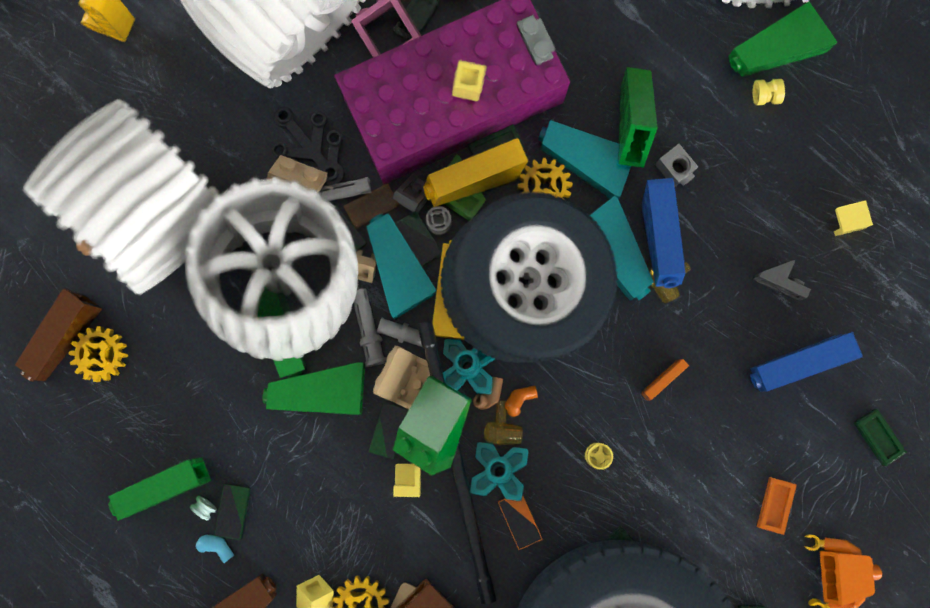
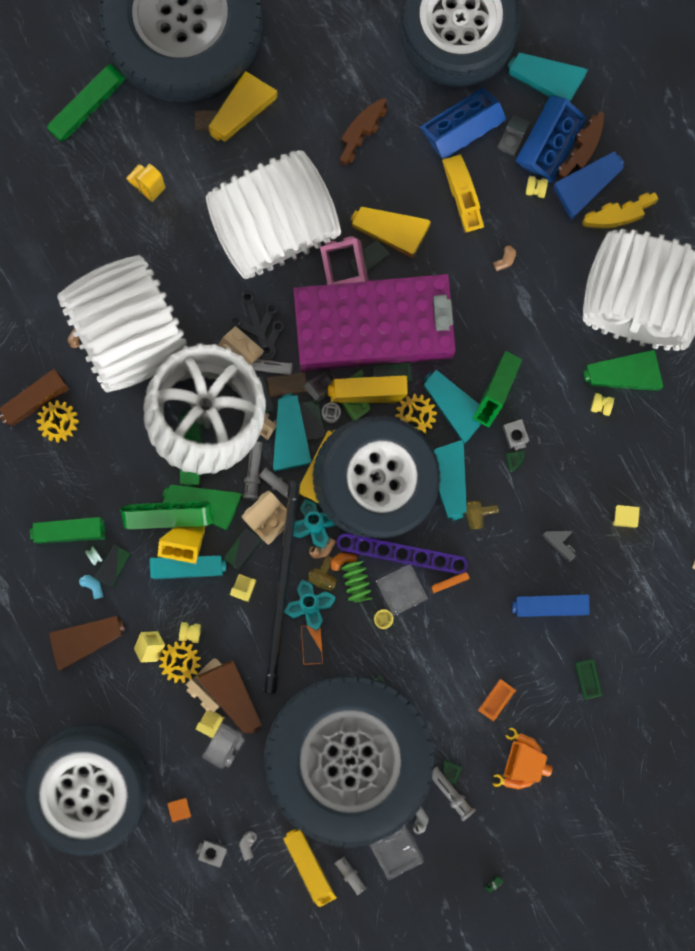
camera: 20 degrees right, 0 degrees up
(277, 423) = (166, 515): none -> green beam
(309, 450) = (182, 543): none -> yellow slope
(325, 481) = (170, 569): none -> teal slope
(360, 562) = (190, 632): none -> light yellow wheel
(433, 427) = (274, 556): green slope -> none
(468, 81) = (383, 327): light yellow panel -> none
(548, 421) = (356, 582): none -> bright green piece
(603, 360) = (411, 553): none -> dark purple beam
(608, 411) = (401, 590): none -> clear brick
(663, 232) = (485, 478): blue slope -> none
(686, 198) = (514, 459): none -> dark green tile

